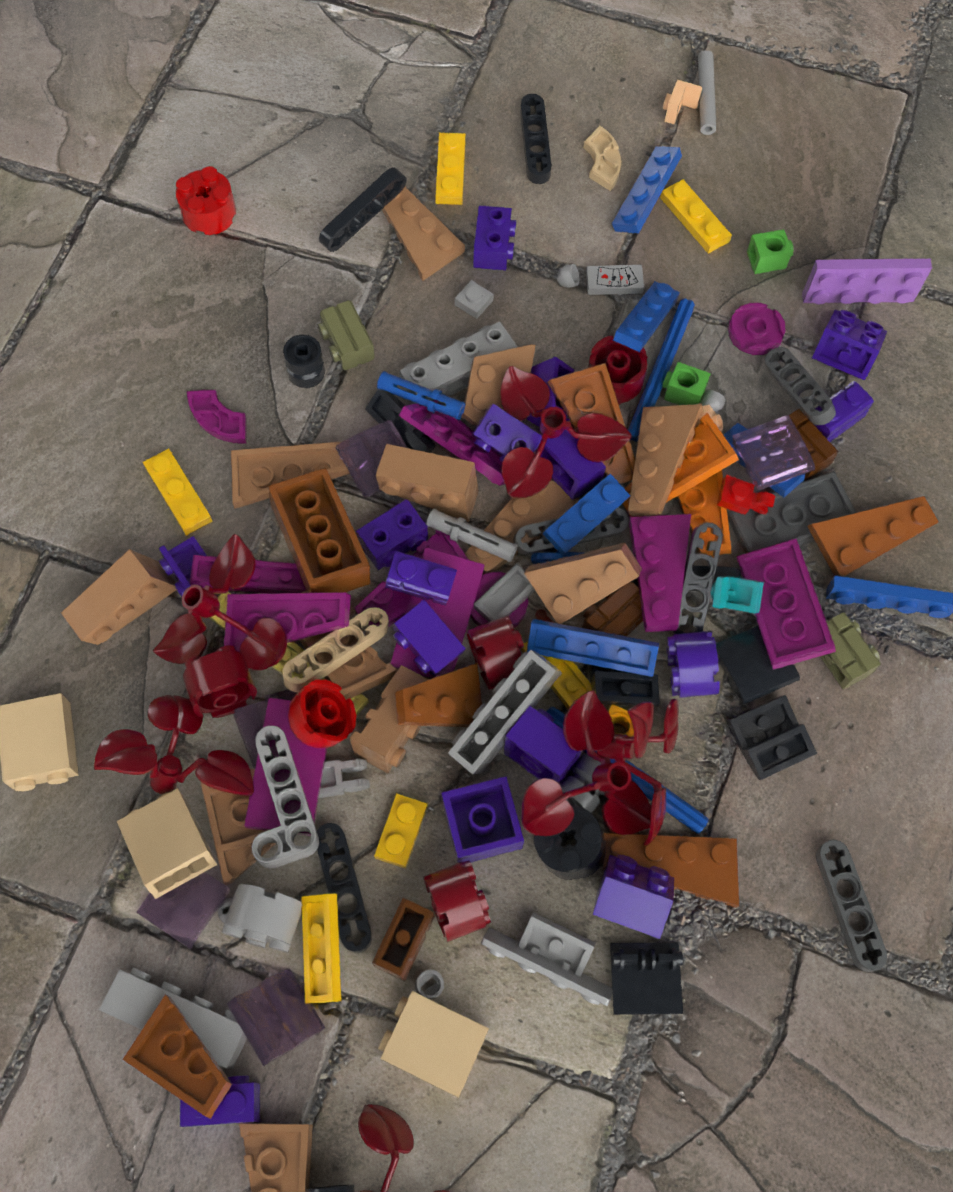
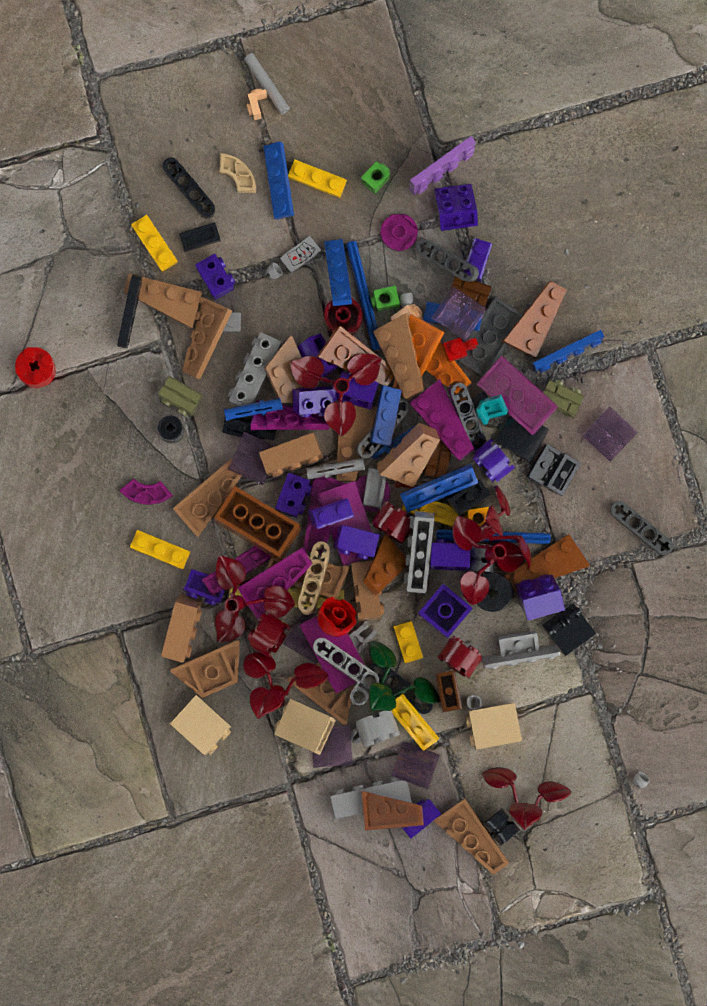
camera: 35 degrees left, 15 degrees up
(112, 681) = (211, 671): none -> medium nougat wing
(300, 874) = (381, 696): none -> dark green plant
(425, 293) = (208, 329): none -> medium nougat wing
(508, 193) = (199, 237): none -> black tile
(885, 742) = (610, 434): none -> clear purple slope

